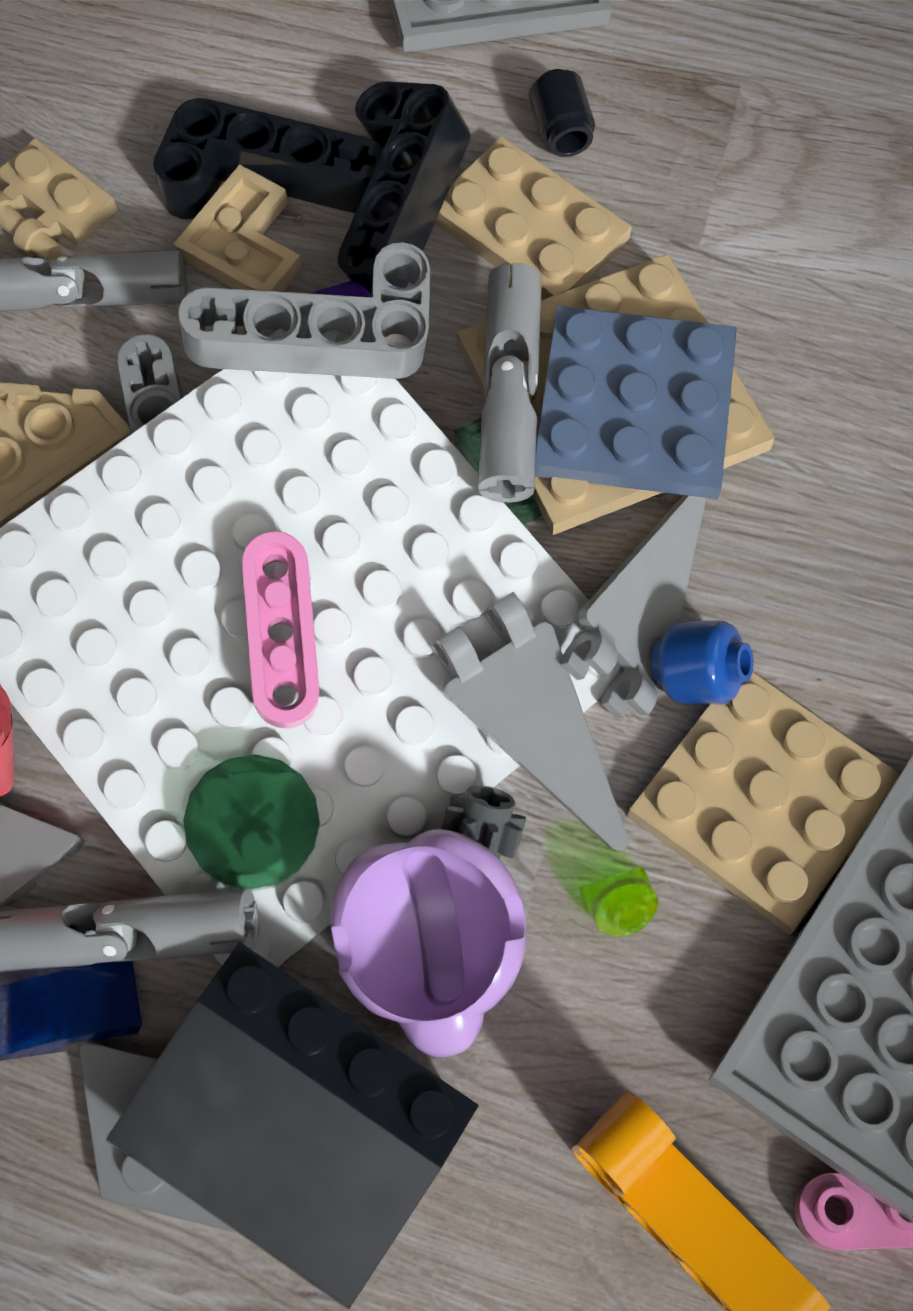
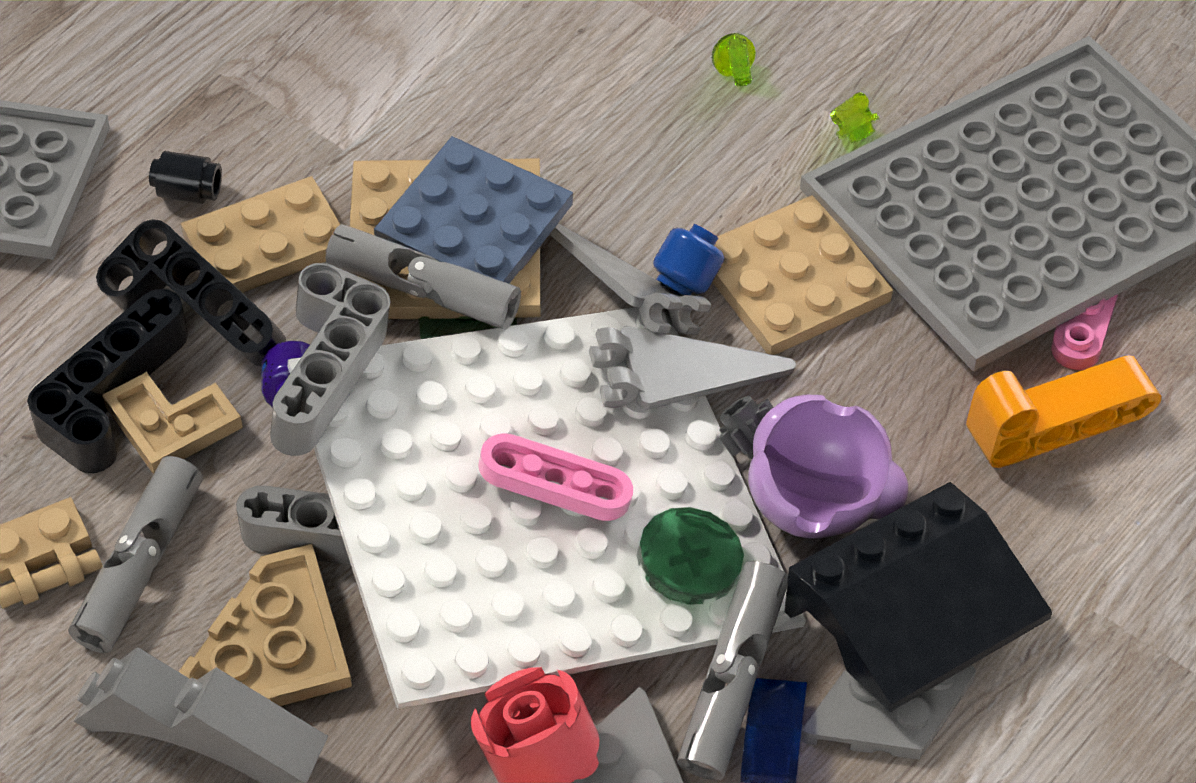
camera: 70 degrees left, 15 degrees down
(621, 902) = (833, 374): clear neon green plate -> none

